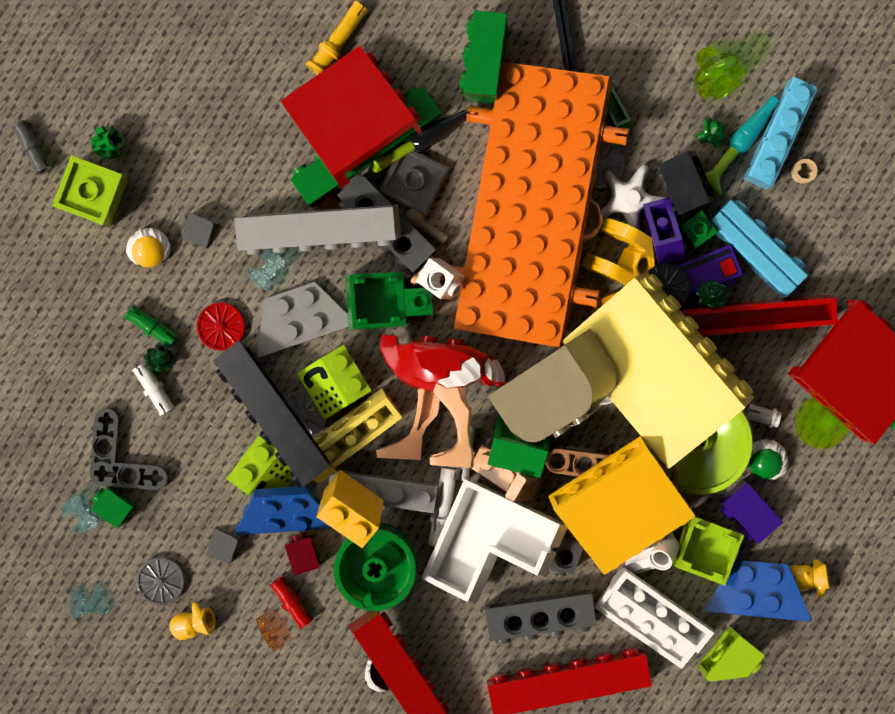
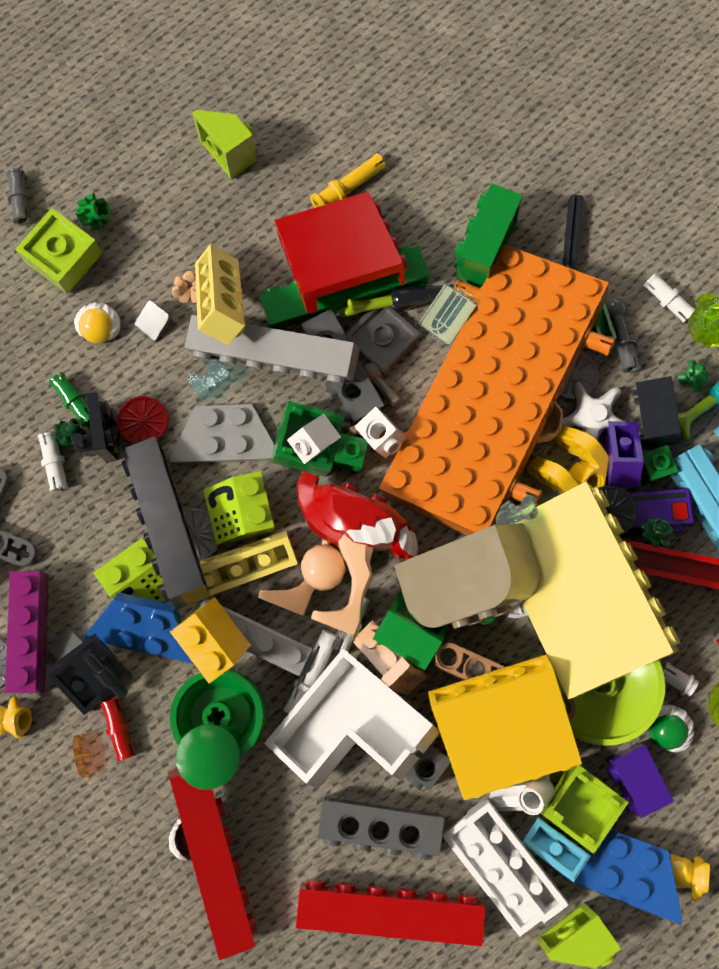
camera: 10 degrees right, 10 degrees down
(185, 545) = (27, 632): none -> magenta brick
(193, 358) = (101, 439): none -> black plate
(211, 34) = (226, 140): none -> lime slope
(221, 188) = (185, 287): none -> light nougat plant
(253, 564) = (90, 674): none -> black plate
(255, 194) = (219, 295): none -> light yellow brick
(302, 553) = (147, 679): dark red brick -> none
(379, 605) = (207, 757): none -> green dish
(383, 303) = (313, 438): none -> white brick
(425, 413) = (323, 567): none -> light nougat hair
(468, 144) = (447, 314): none -> clear light blue piece
(578, 322) = (511, 514): none -> clear light blue piece
(624, 87) = (626, 346): none -> dark grey pin
(670, 62) = (669, 297): none -> white pin
(692, 591) = (556, 849): none -> medium azure slope

